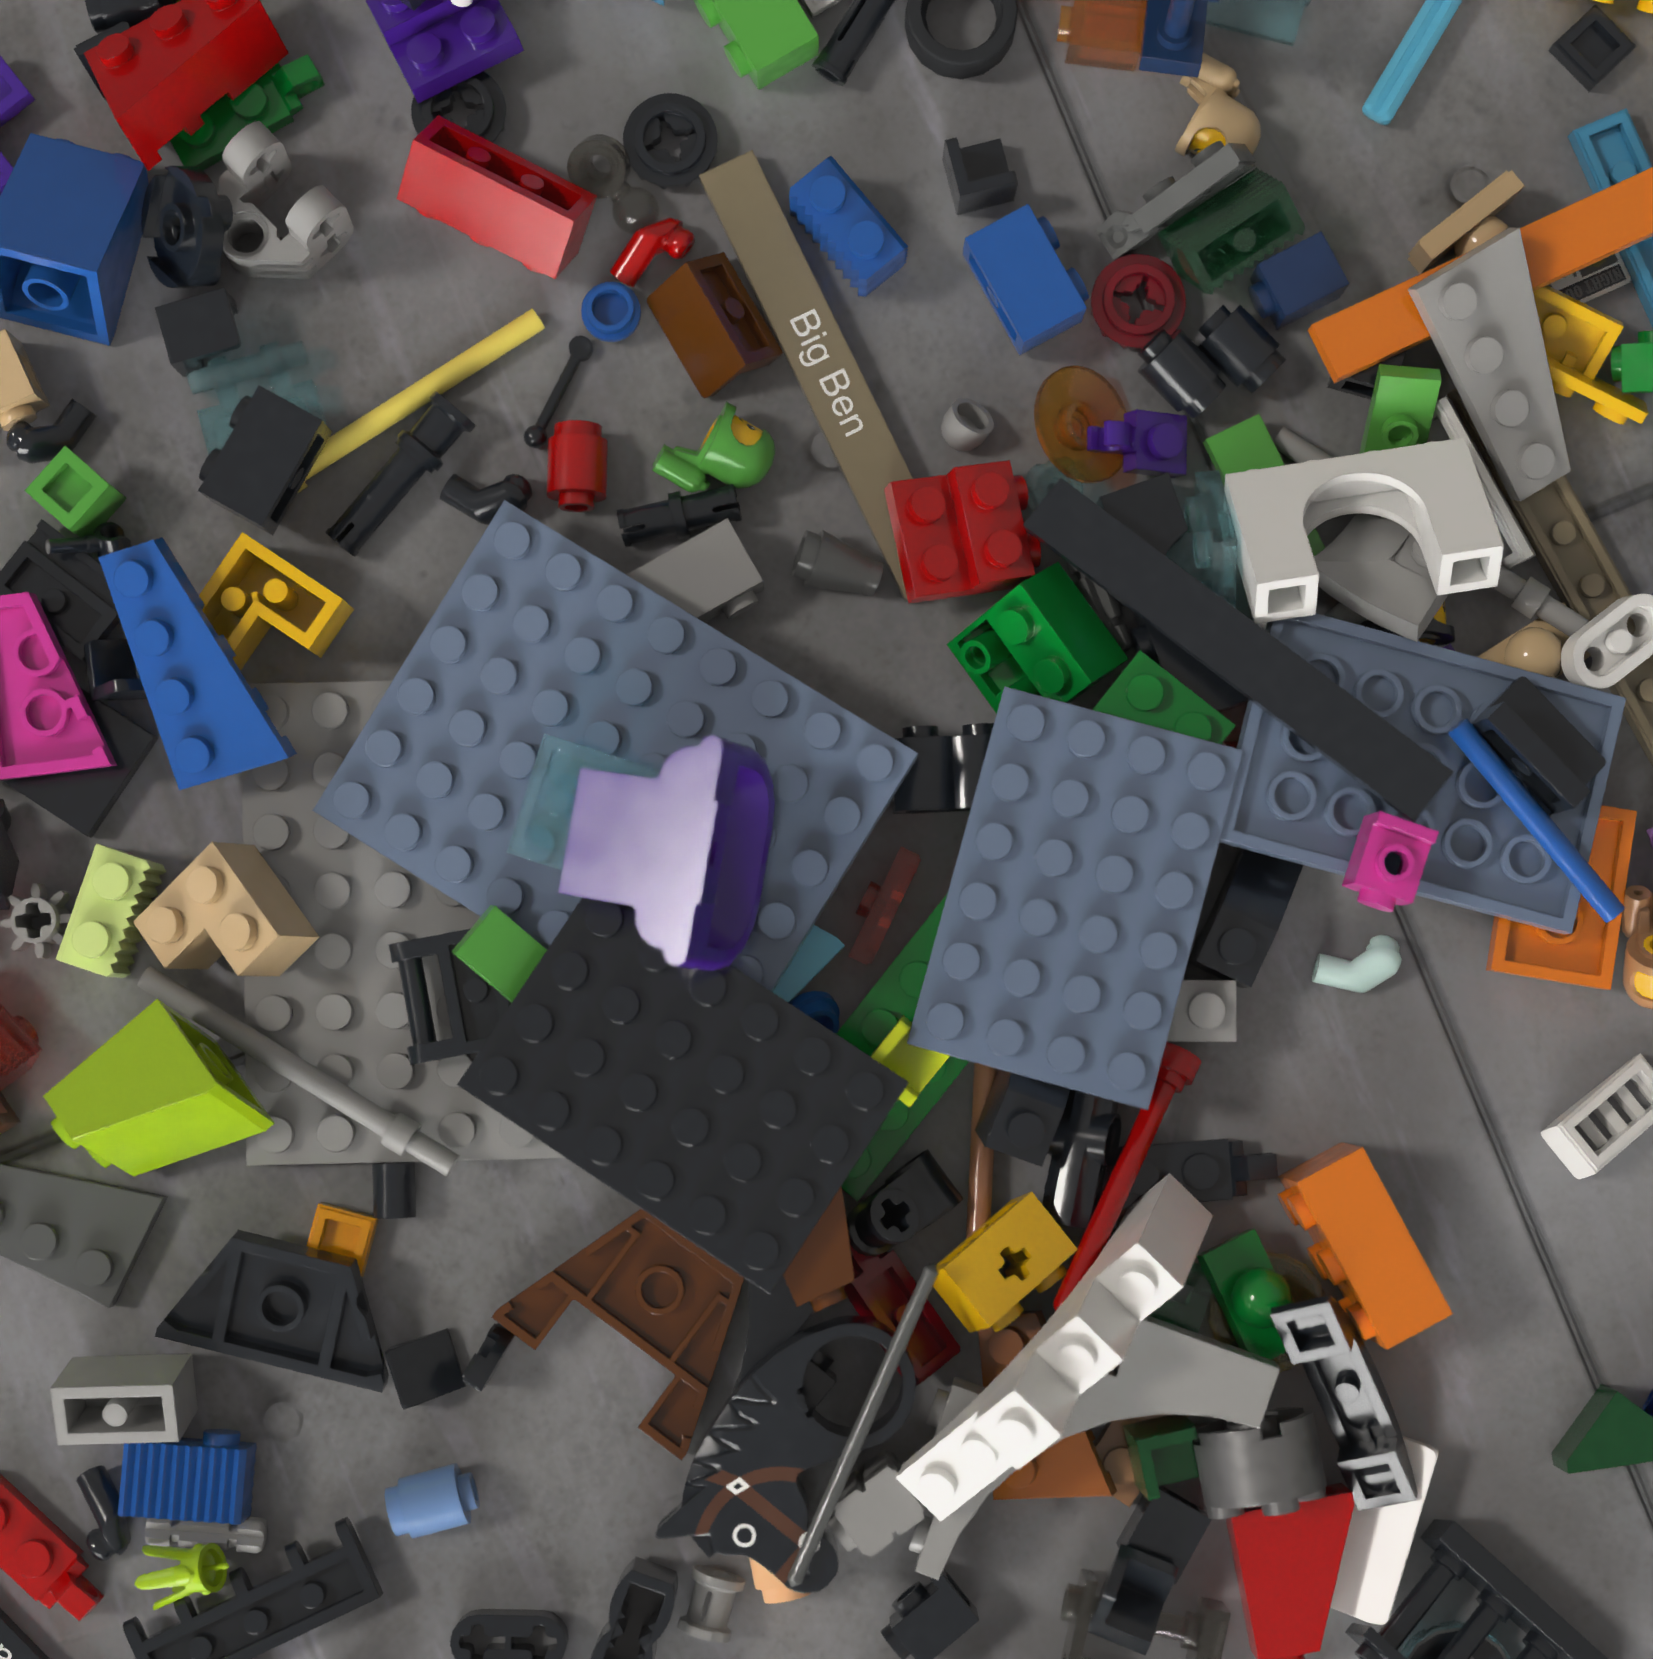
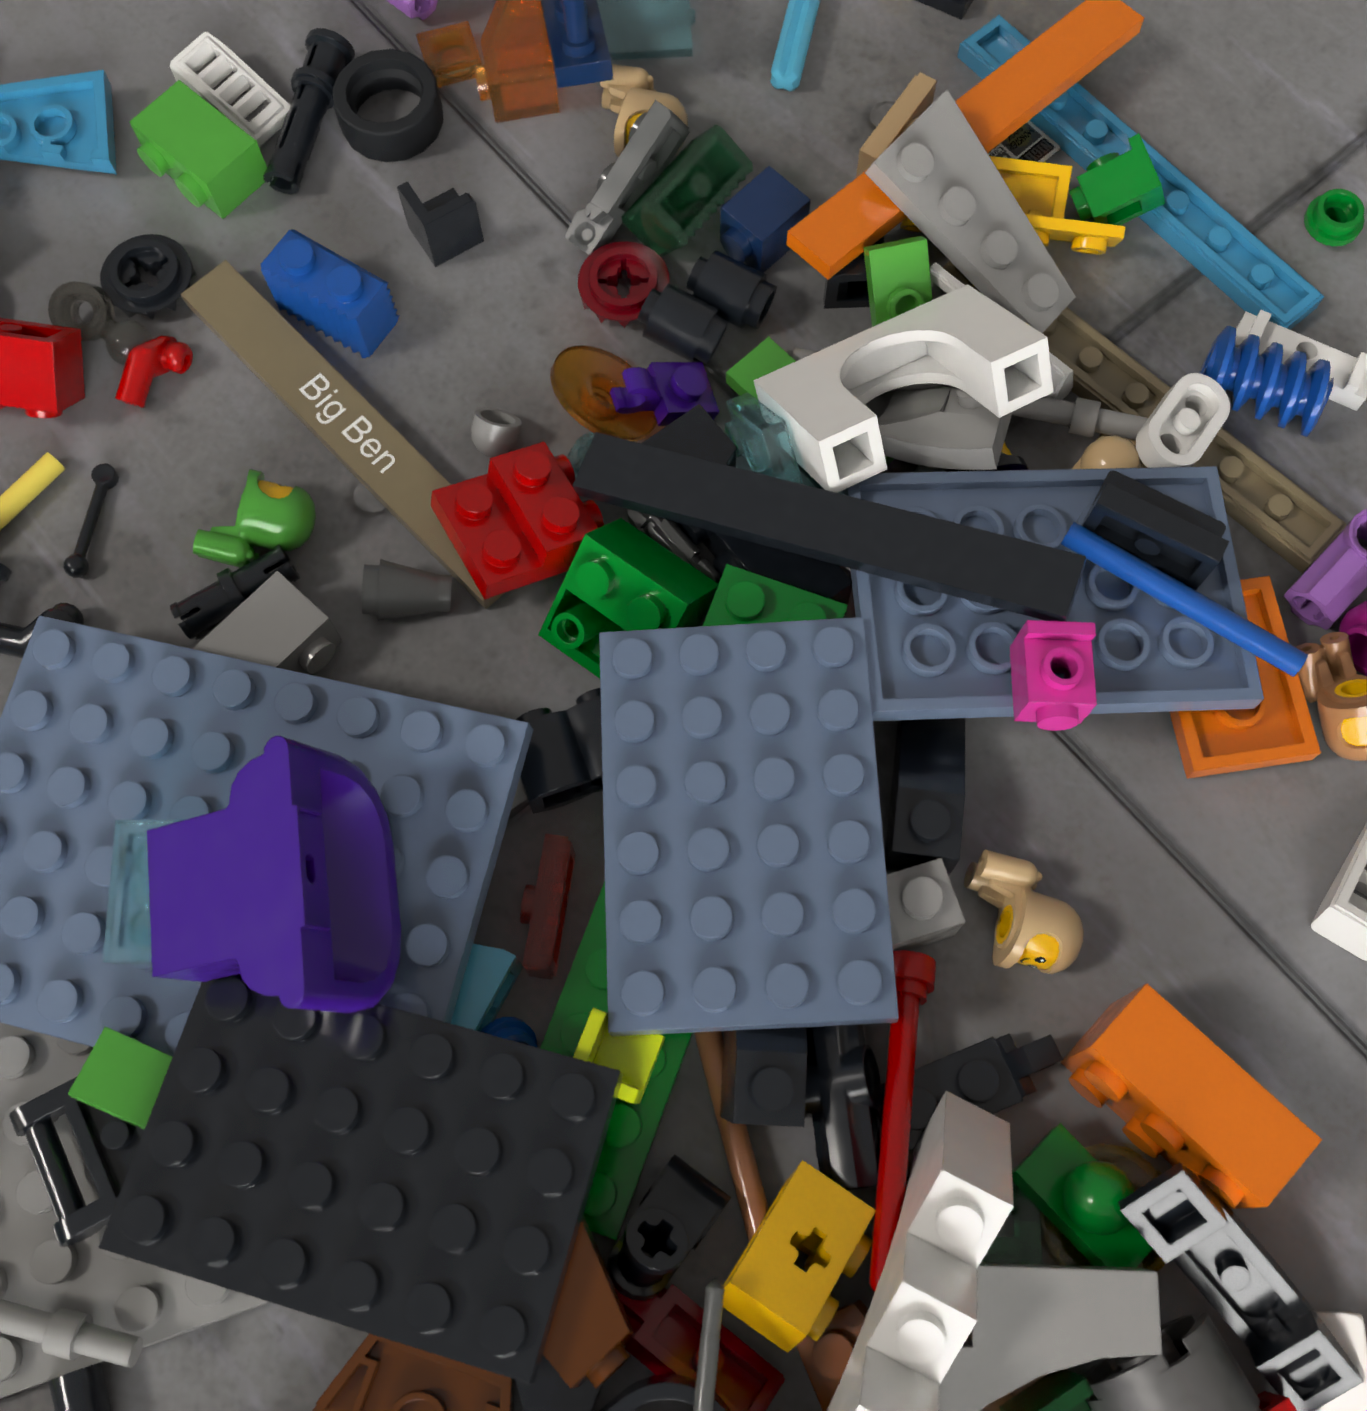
camera: 15 degrees left, 15 degrees down
(577, 465) = (120, 575): red brick -> none
(611, 311) = (124, 432): blue plate -> none
(712, 323) = (224, 413): reddish brown panel -> none
(1025, 278) = (510, 286): blue brick -> none
(1293, 1057) = (1029, 925): none -> tan piece
(1364, 972) = (1065, 820): light aqua arm -> none

